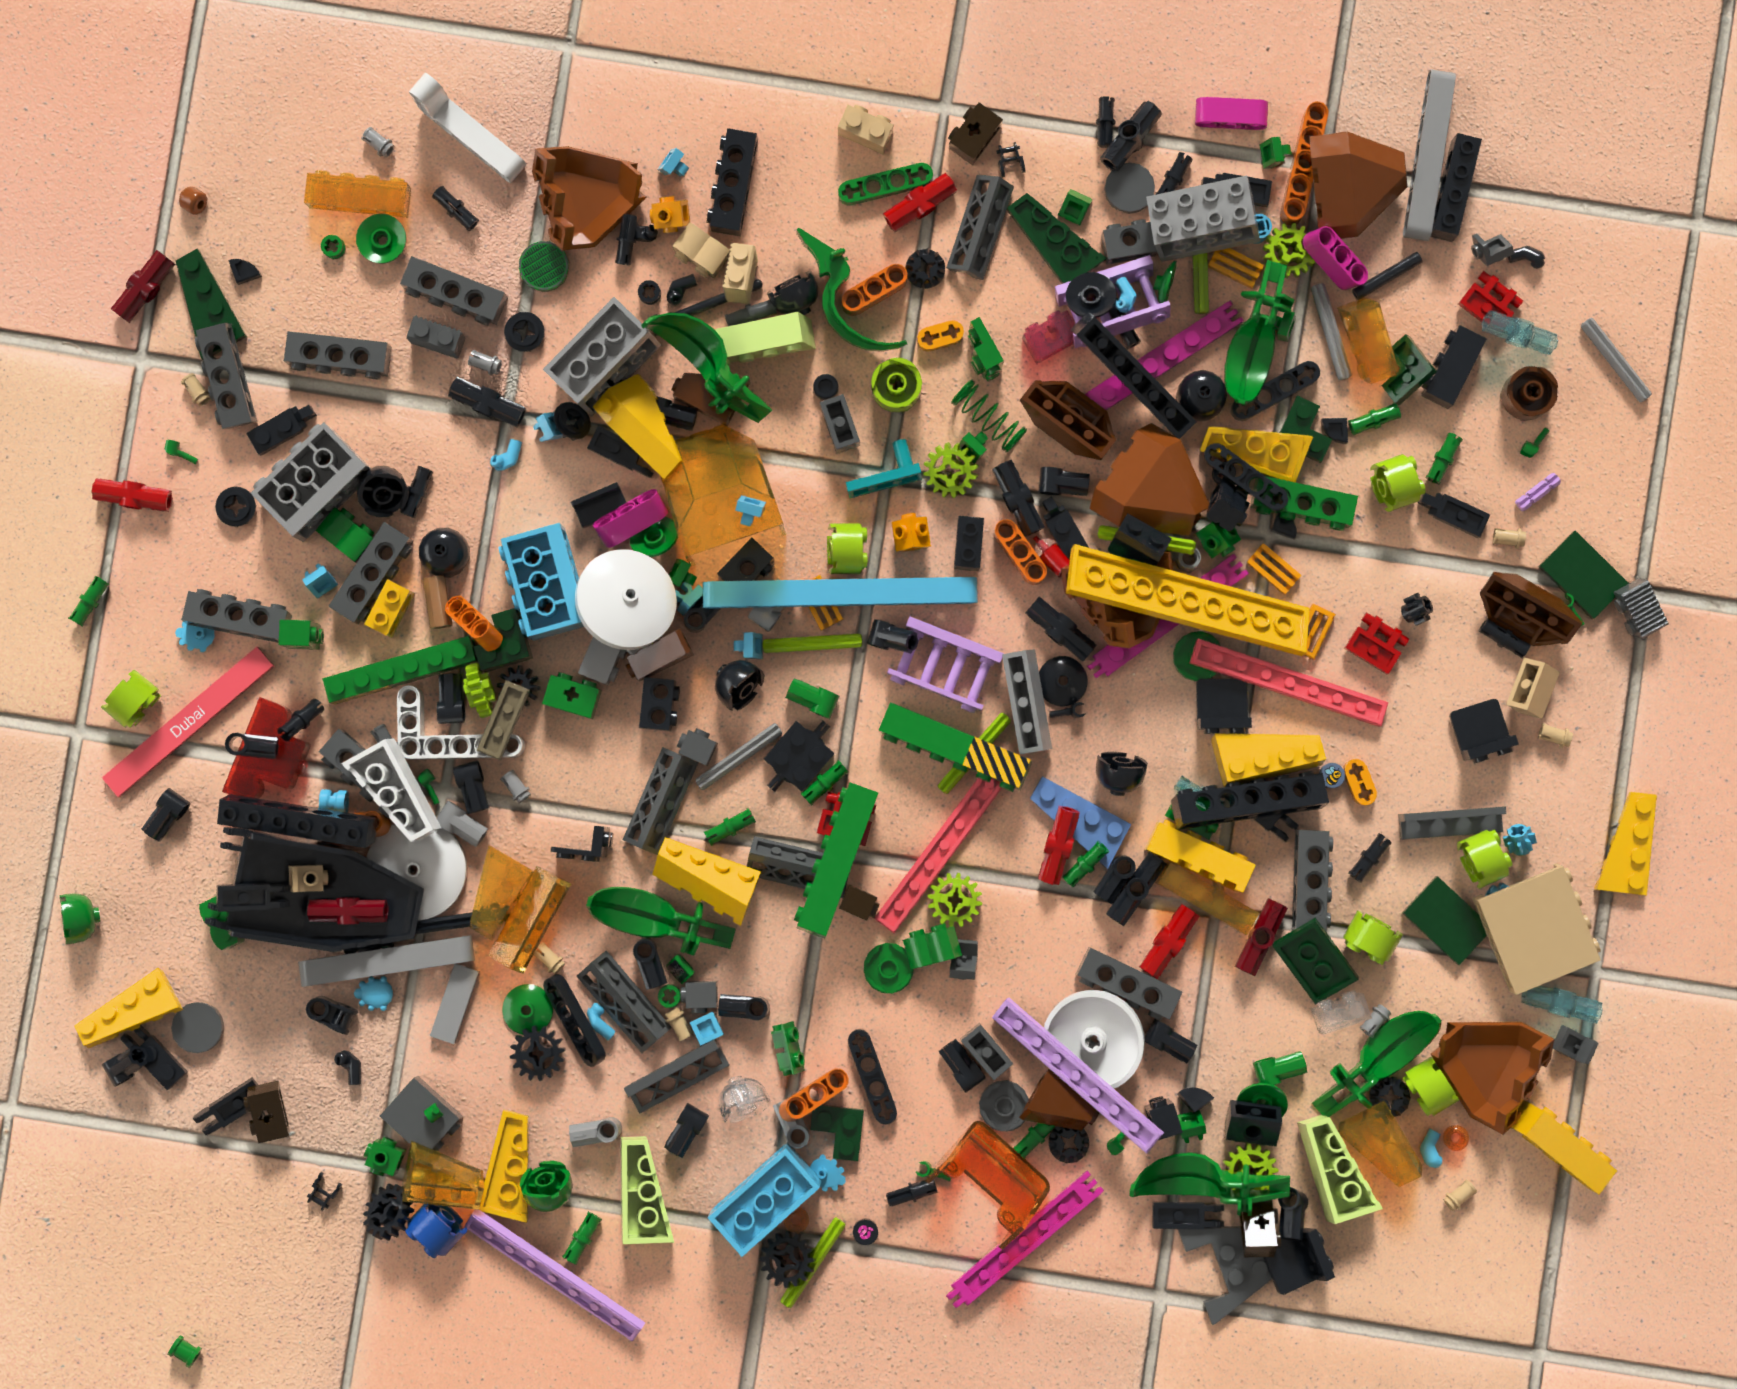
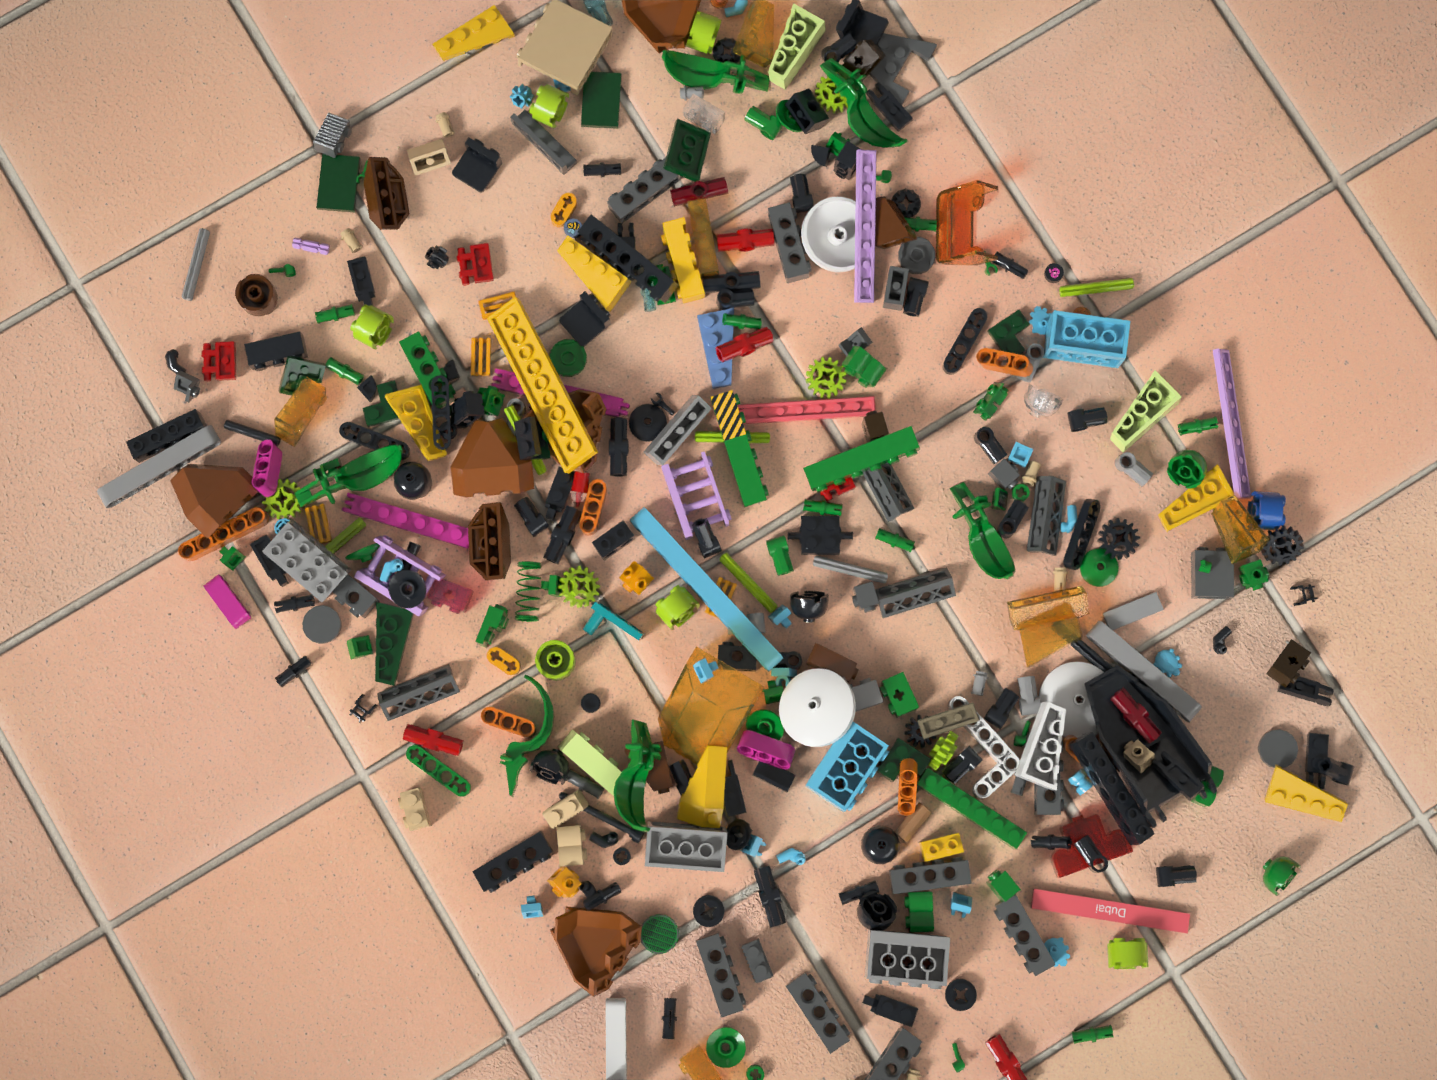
camera: 130 degrees left, 5 degrees down
(333, 1014) = (1201, 675): black piece -> none
(485, 362) = (747, 919): light grey pin -> none
(601, 842) = (981, 604): black bracket -> none
(652, 704) = (863, 644): black brick -> none
(672, 1067) = (1060, 455): dark grey fence -> none
(707, 878) = (935, 525): yellow wedge -> none
(784, 1269) = (1104, 295): black gear -> none
(840, 423) = (606, 673): dark grey brick -> none
(887, 968) = (896, 383): green tile -> none
(919, 278) = (467, 695): black gear -> none
(969, 146) = (353, 738): dark brown brick -> none
(1040, 1228) = (1007, 186): dark pink hinge -> none
(1120, 773) = (673, 344): black cylinder -> none
(1123, 145) = (279, 649): black piece -> none
(1133, 375) = (435, 524): black brick -> none
(1288, 682) = (540, 294): coral tile -> none
(1331, 331) = (312, 437): light grey axle -> none
(1372, 936) = (646, 130): lime brick -> none
(1504, 638) = (412, 197): black pin -> none
(1519, 332) = (225, 329): clear light blue piece -> none

